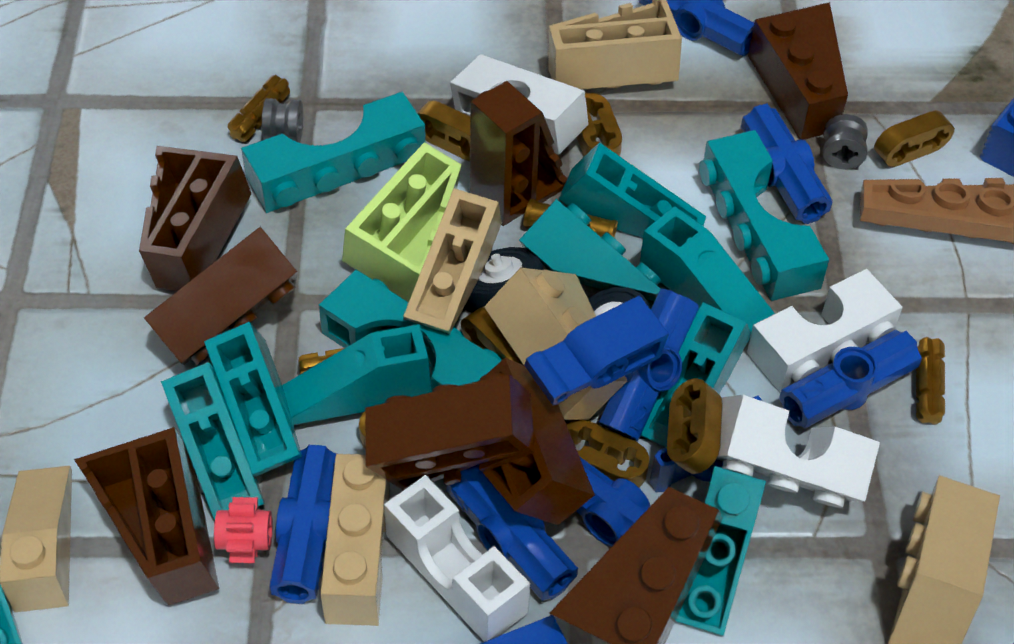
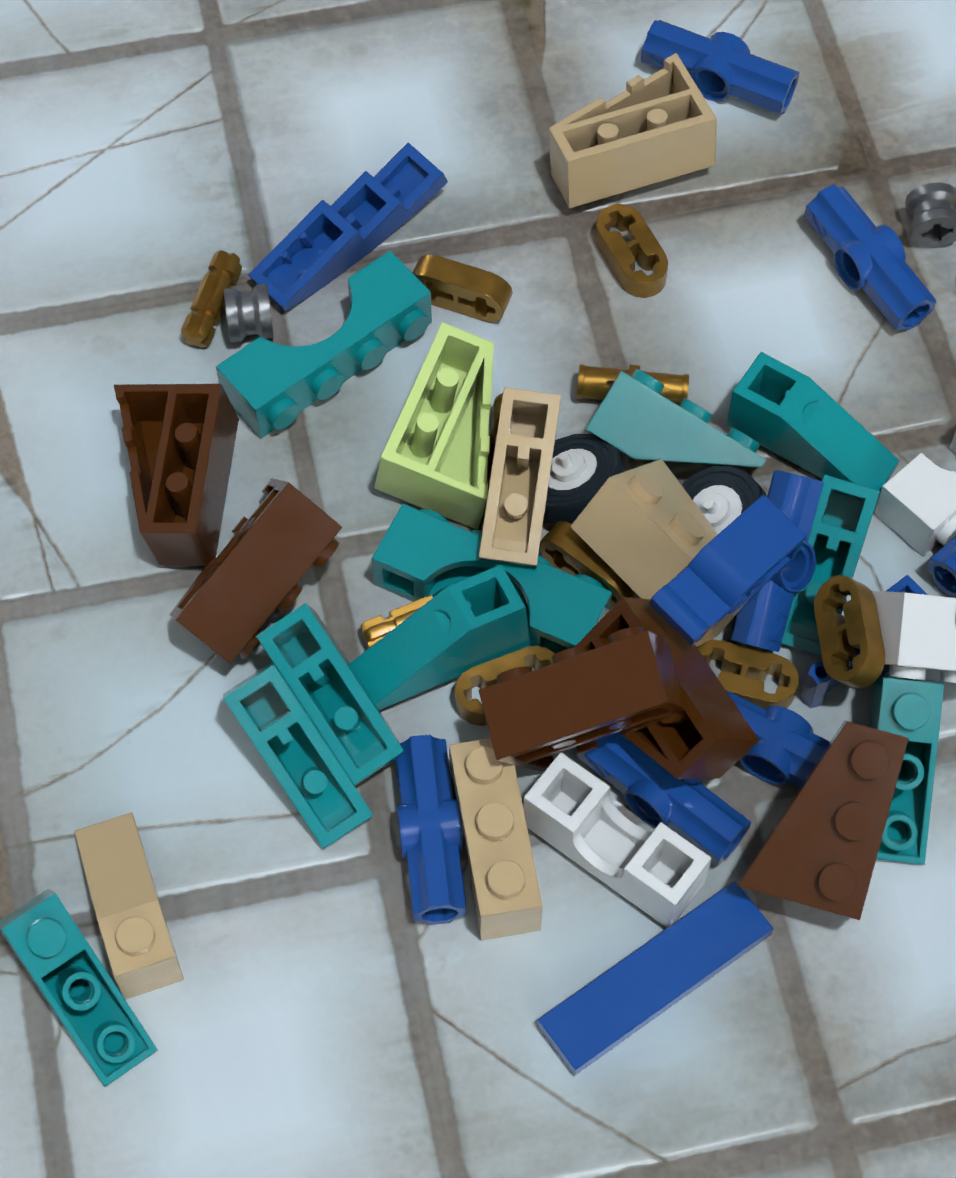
camera: 10 degrees left, 10 degrees up
(157, 511) = (259, 852): reddish brown wedge -> none
(243, 530) = (363, 853): coral gear -> none
(388, 72) = (349, 229): none -> blue slope
(511, 152) = (549, 318): reddish brown wedge -> none
(560, 103) = (498, 221): white arch -> none
(618, 191) = (683, 338): teal slope -> none
(781, 254) = (891, 382): teal arch -> none
(801, 66) = (863, 122): reddish brown wedge -> none

